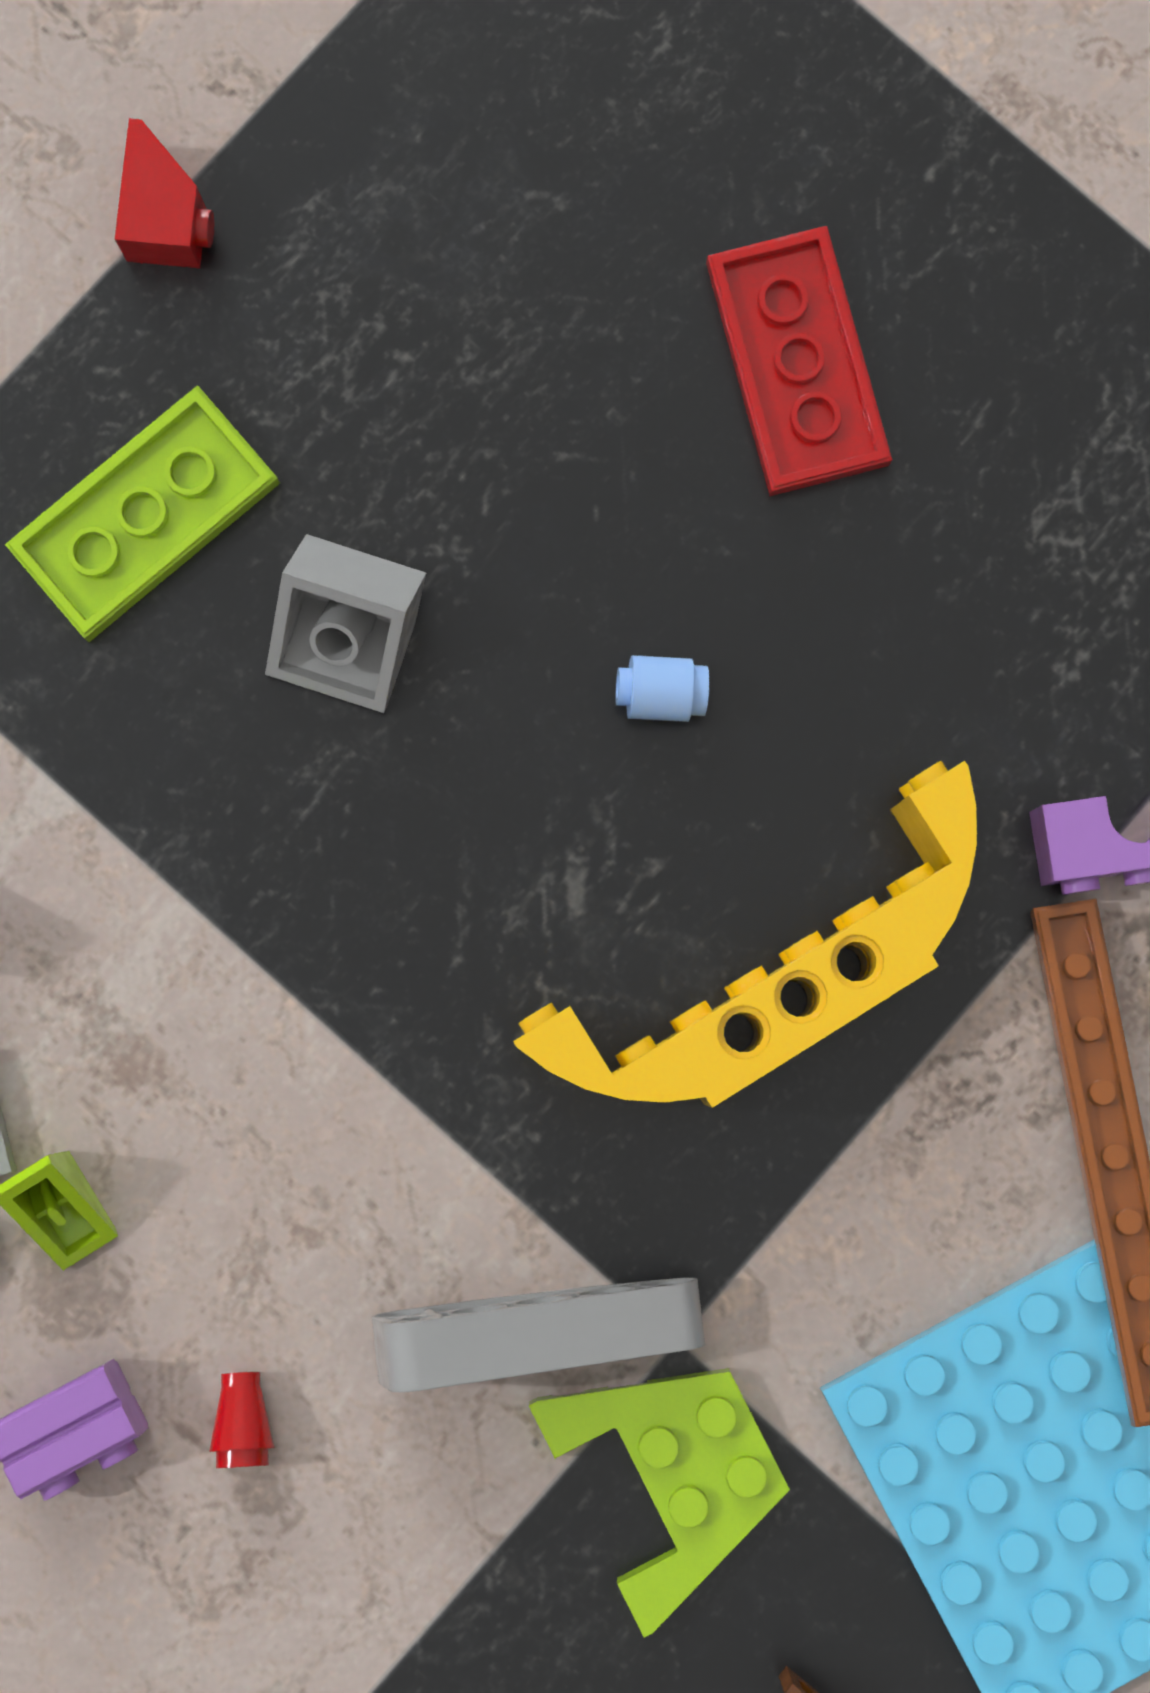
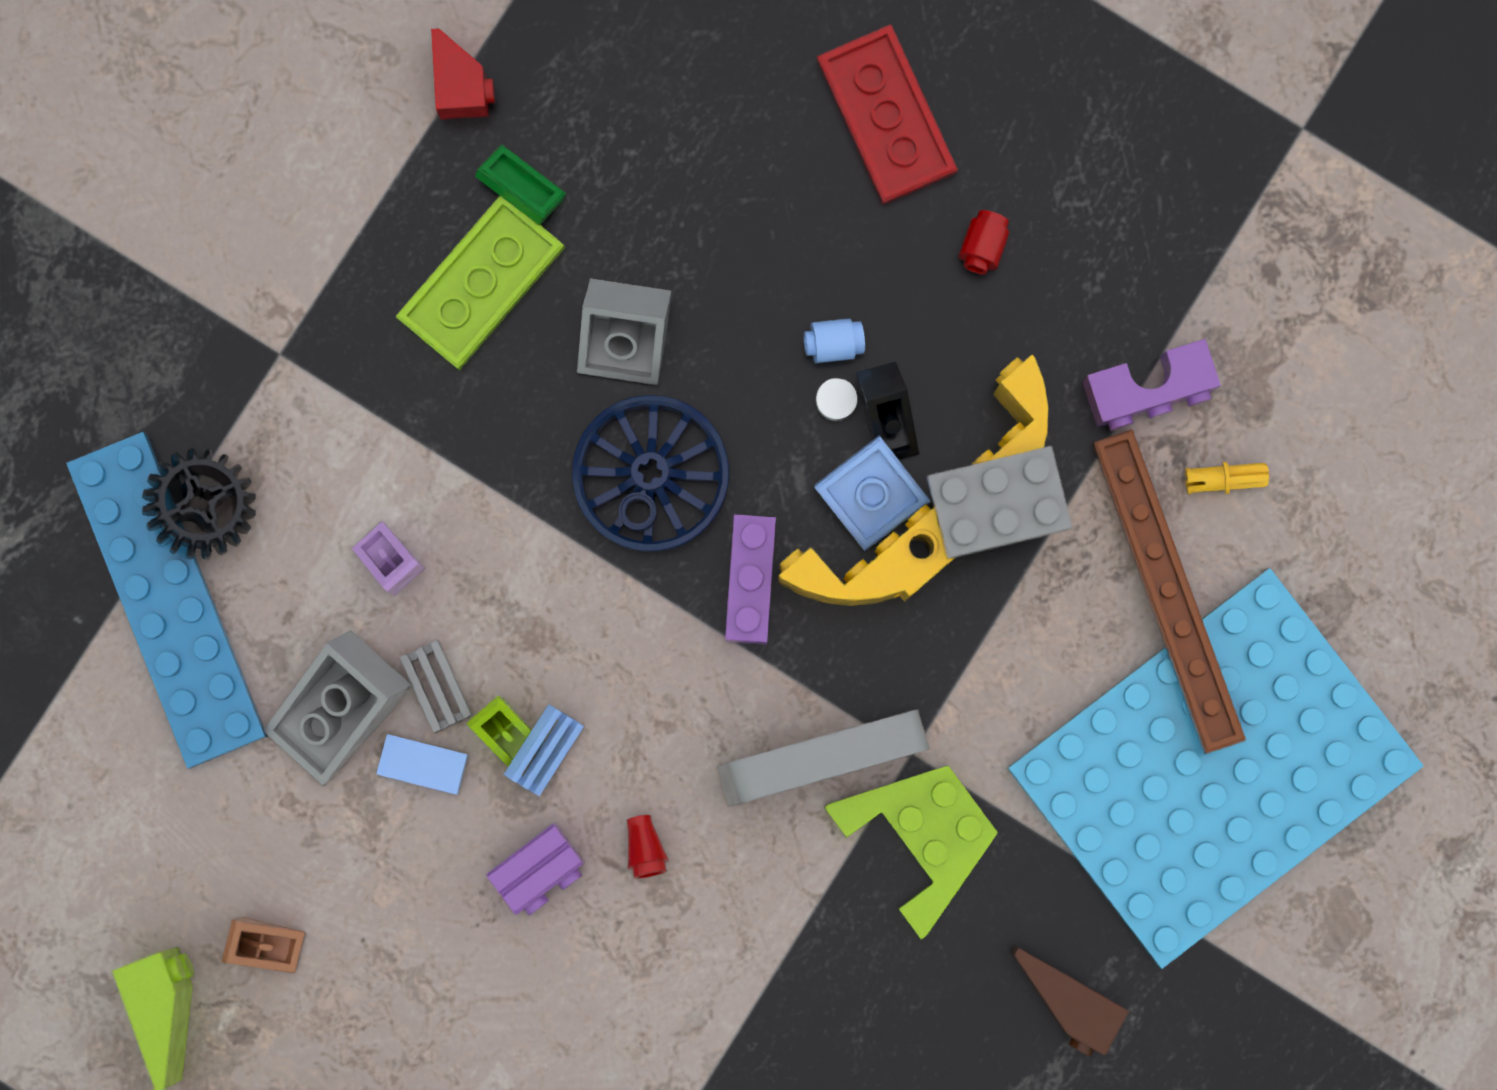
camera: 10 degrees left, 0 degrees up
(119, 1249) = (548, 753): none -> light blue tile
(227, 376) = (520, 184): none -> green tile
(342, 823) = (665, 466): none -> dark blue piece
(472, 1035) = (750, 579): none -> medium lavender brick
(651, 779) = (836, 399): none -> white tile
(681, 931) = (872, 493): none -> light blue tile
(726, 811) = (888, 408): none -> black slope
(877, 984) = (999, 502): none -> light grey plate
(916, 576) = (984, 242): none -> red brick

